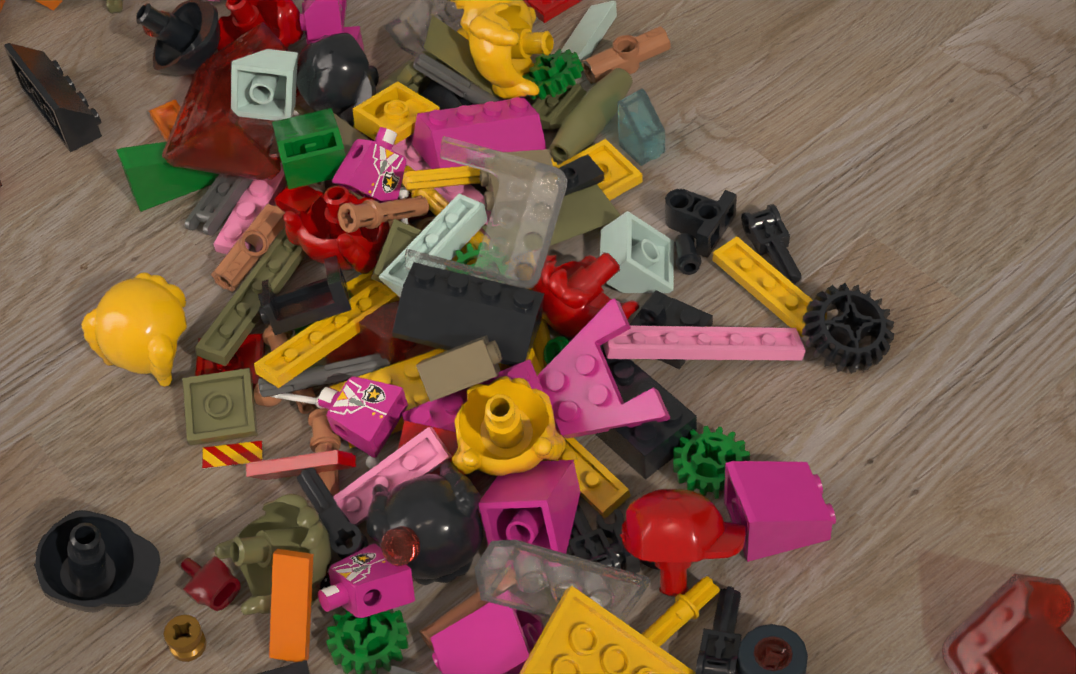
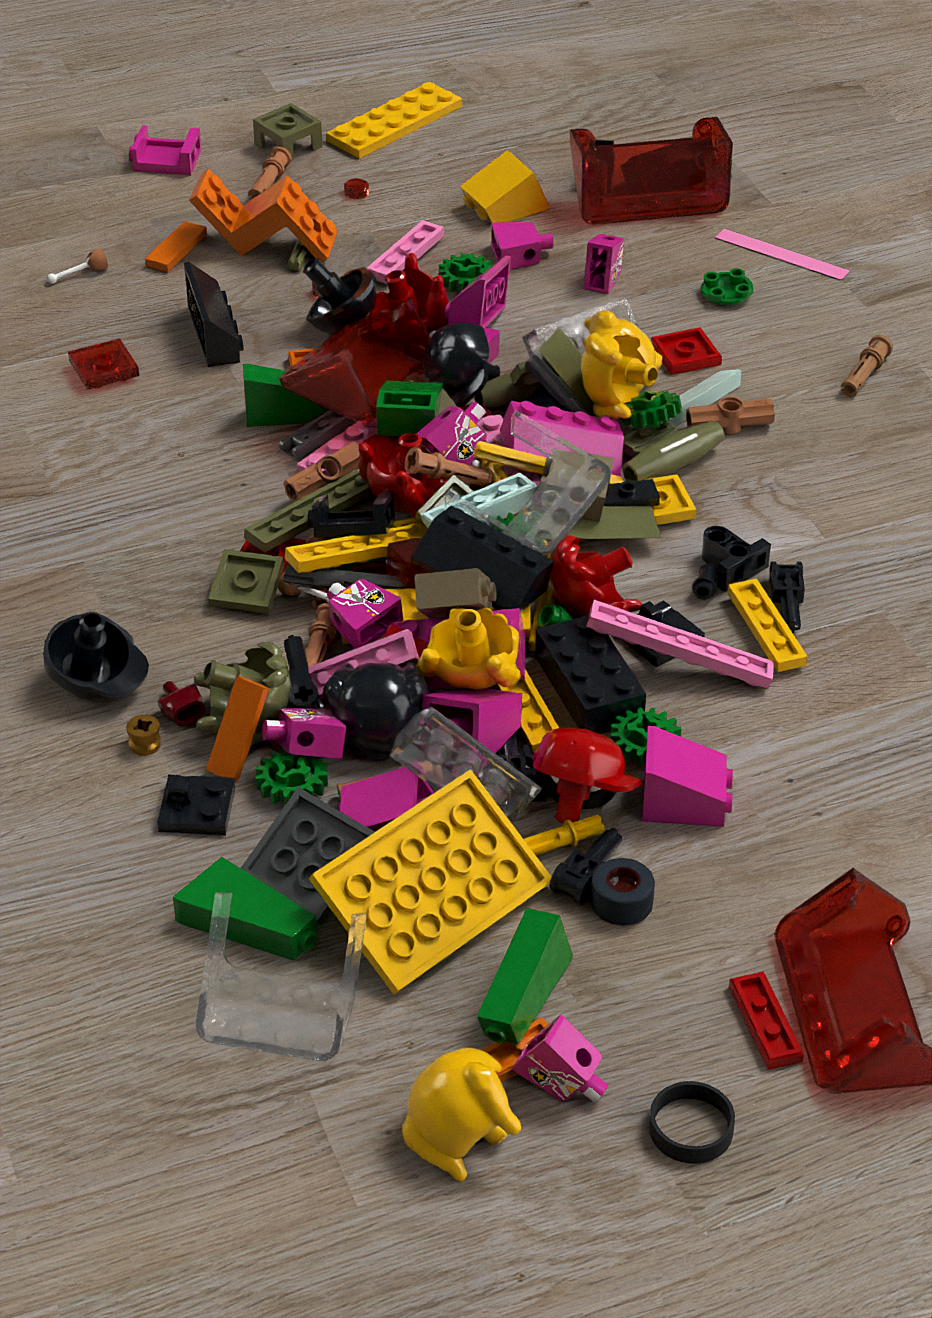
camera: 15 degrees right, 10 degrees down
(138, 326) = (203, 499): yellow piece -> none
(231, 454) = (242, 622): sticker -> none
(264, 85) = (392, 349): light aqua slope -> none
(294, 465) = (314, 637): tile -> none
(392, 109) = (492, 396): yellow plate -> none
(400, 545) = (344, 705): clear red tile -> none
(584, 389) = (556, 640): dark pink wing -> none
(640, 128) = (710, 472): clear light blue slope -> none
(641, 252) = (659, 570): light aqua slope -> none
(839, 337) = (837, 671): black gear -> none

